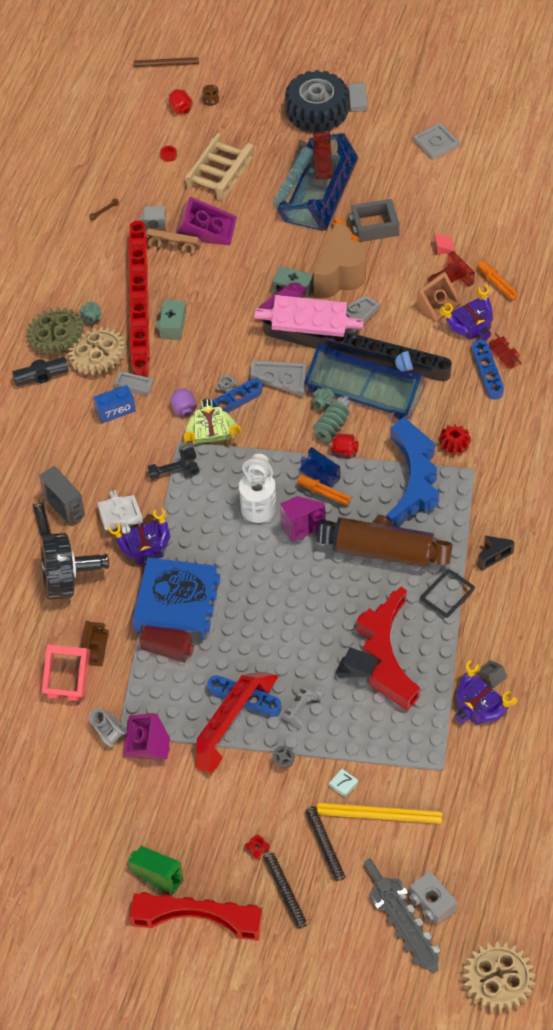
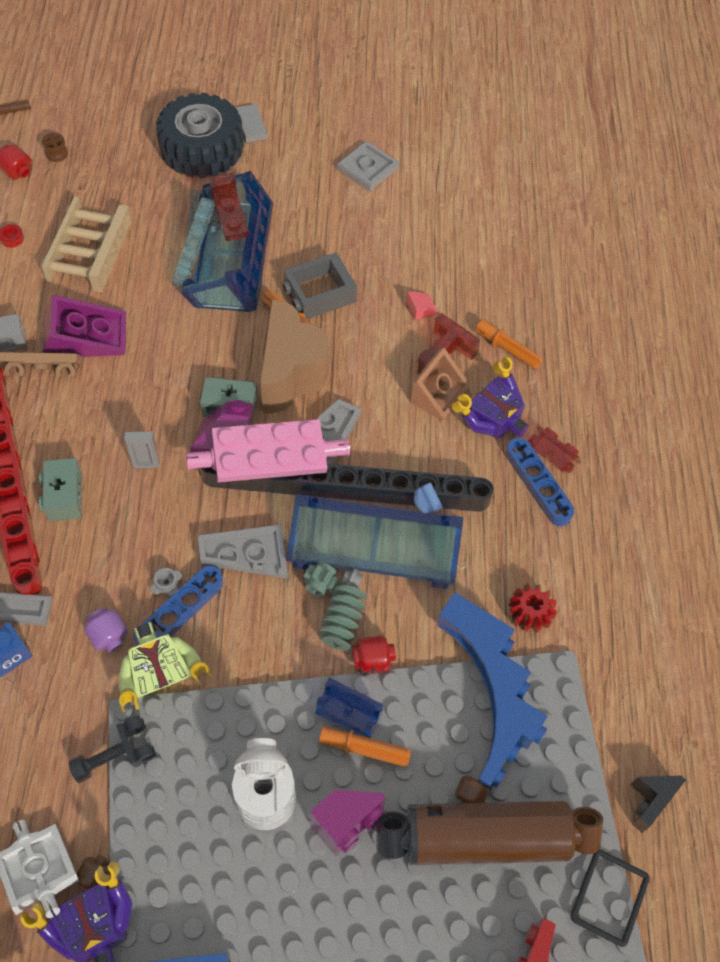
camera: 20 degrees left, 5 degrees up
(228, 303) = (142, 449): none -> light grey tile

